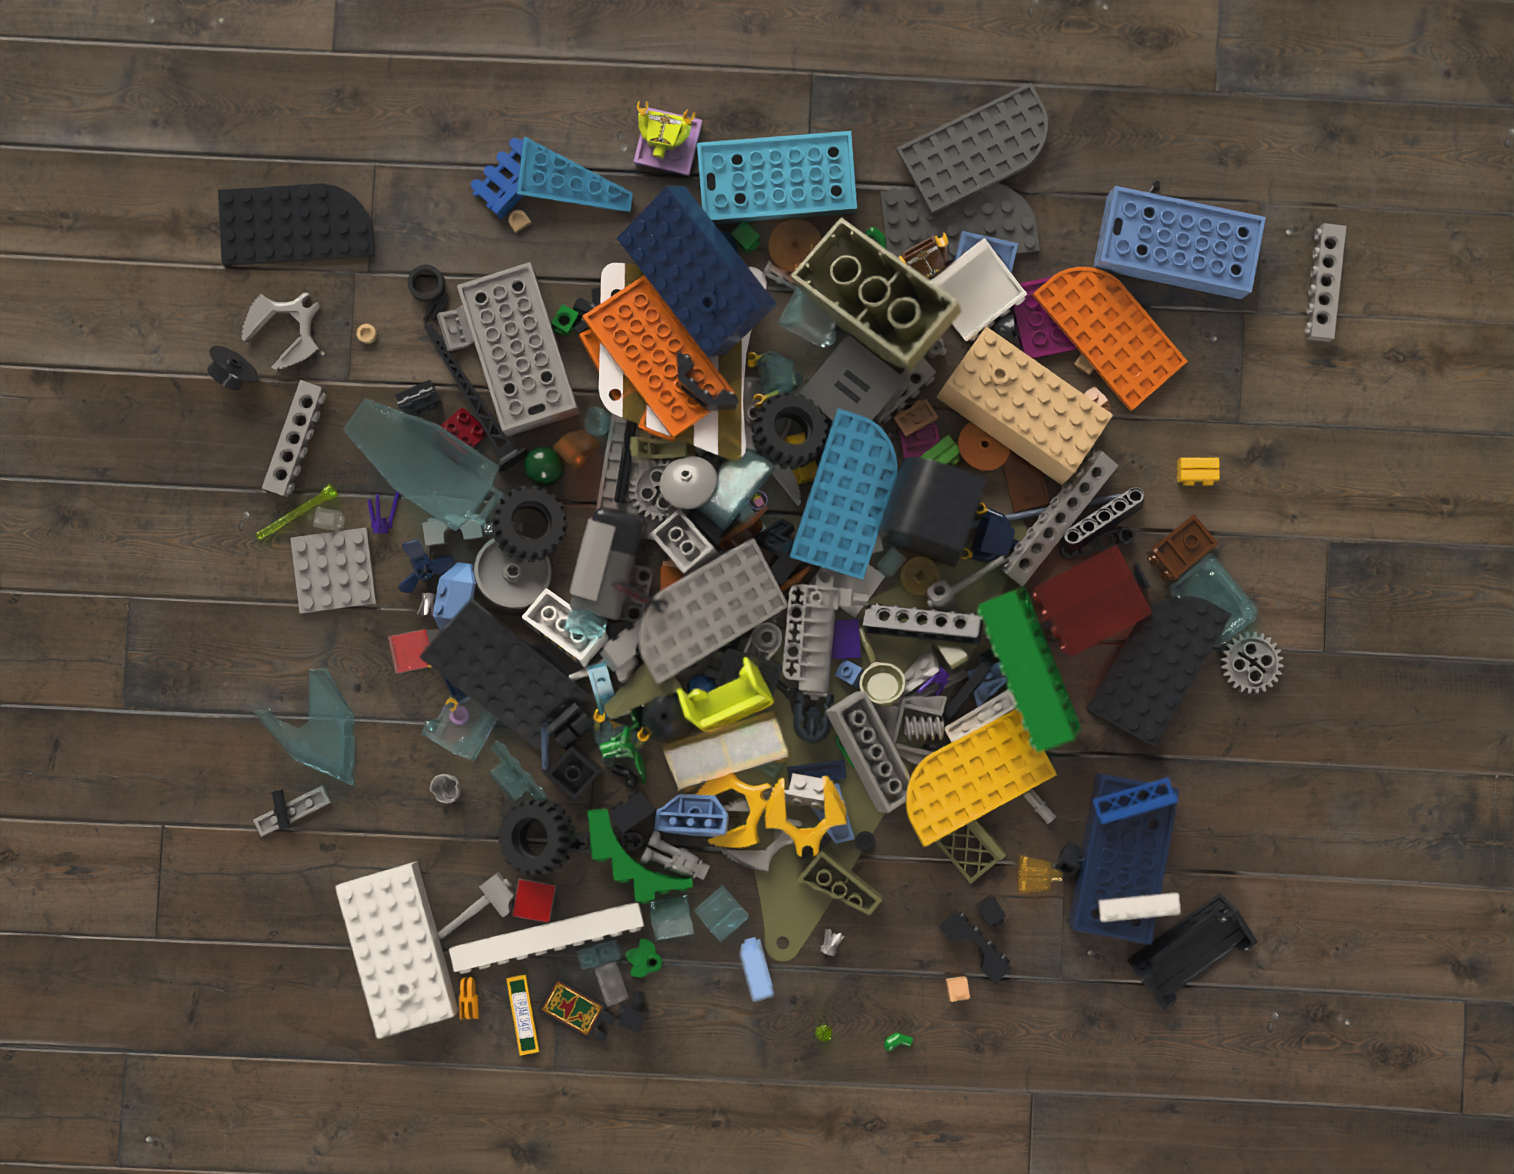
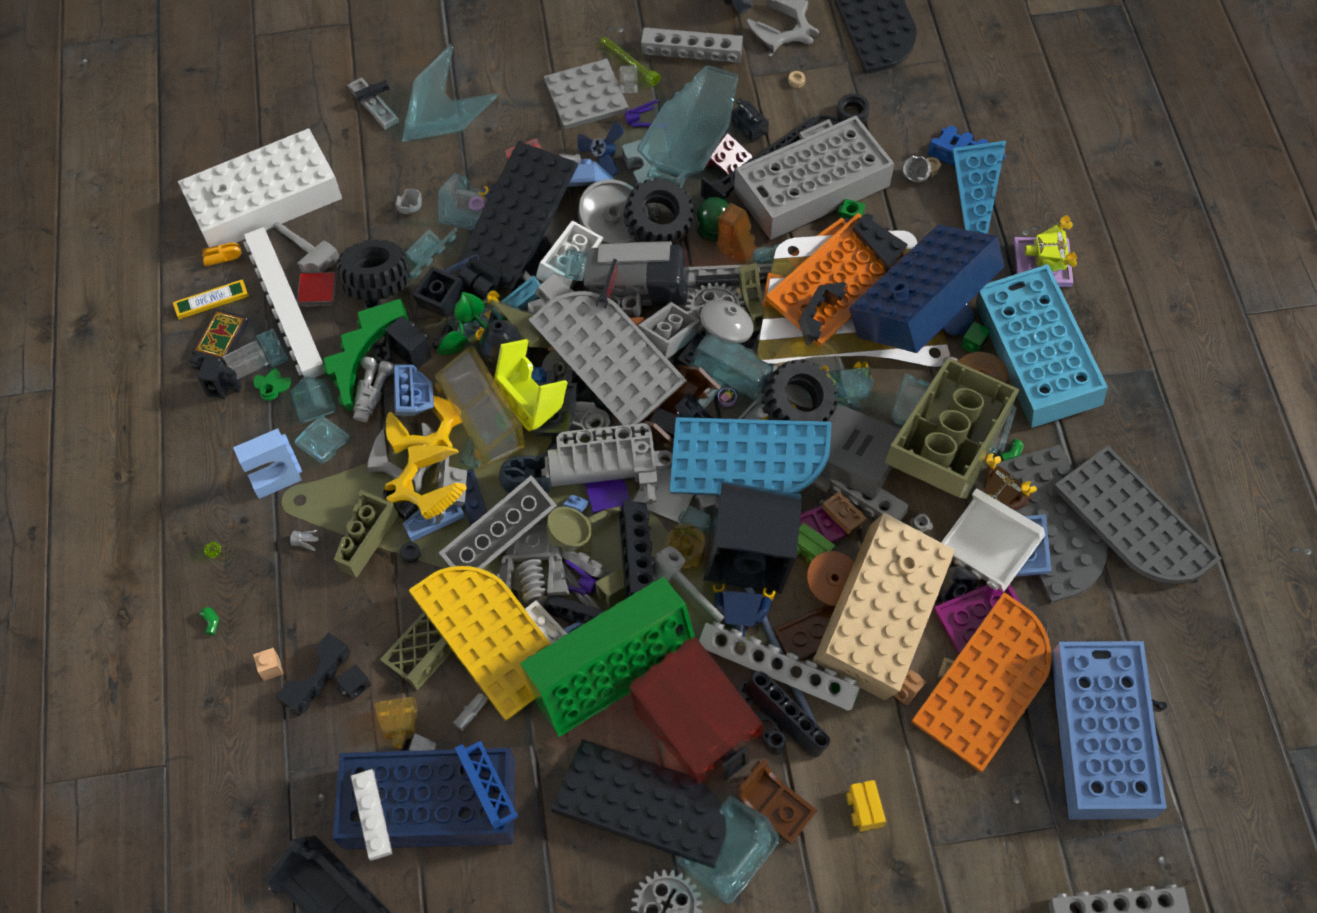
camera: 80 degrees right, 25 degrees down
(525, 237) = (916, 169): none -> light grey hair
(622, 302) = (882, 242): none -> black wing

